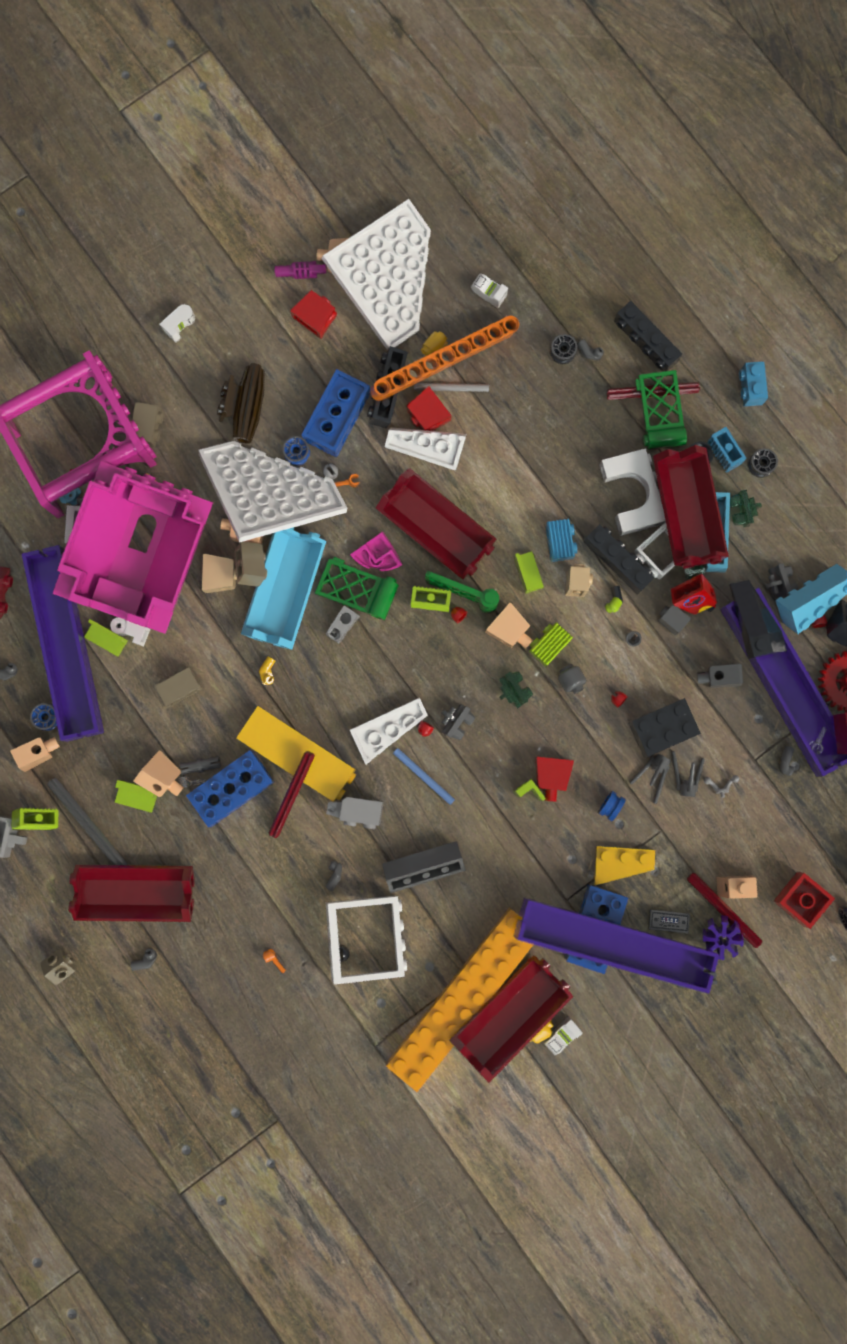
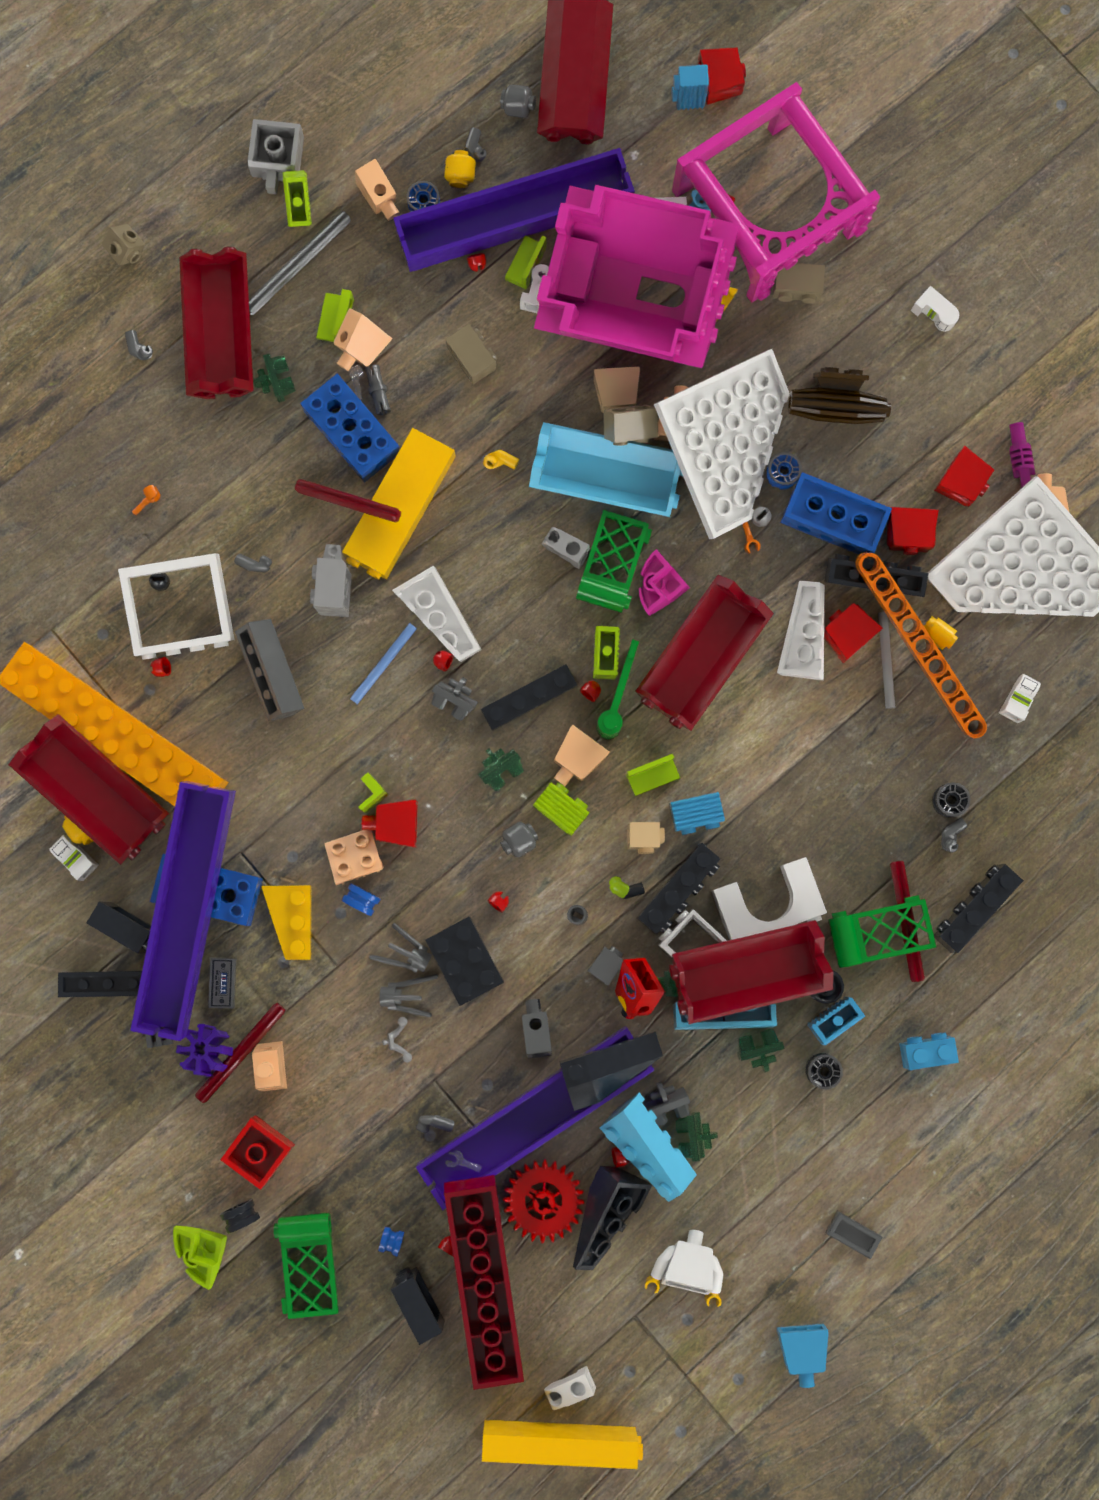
camera: 80 degrees right, 0 degrees up
(23, 685) = (459, 169): none -> yellow head
(101, 677) = (477, 260): none -> red hinge
(191, 843) = (275, 366): none -> clear green hips
(352, 357) = (911, 530): none -> red torso
(413, 955) = (161, 667): none -> red hinge
(459, 663) = (529, 697): none -> black plate
(576, 810) = (353, 856): none -> light nougat hinge
(623, 996) = (120, 926): none -> black window
(664, 1017) = (98, 984): none -> black plate
(815, 564) = (695, 1147): none -> clear green hips

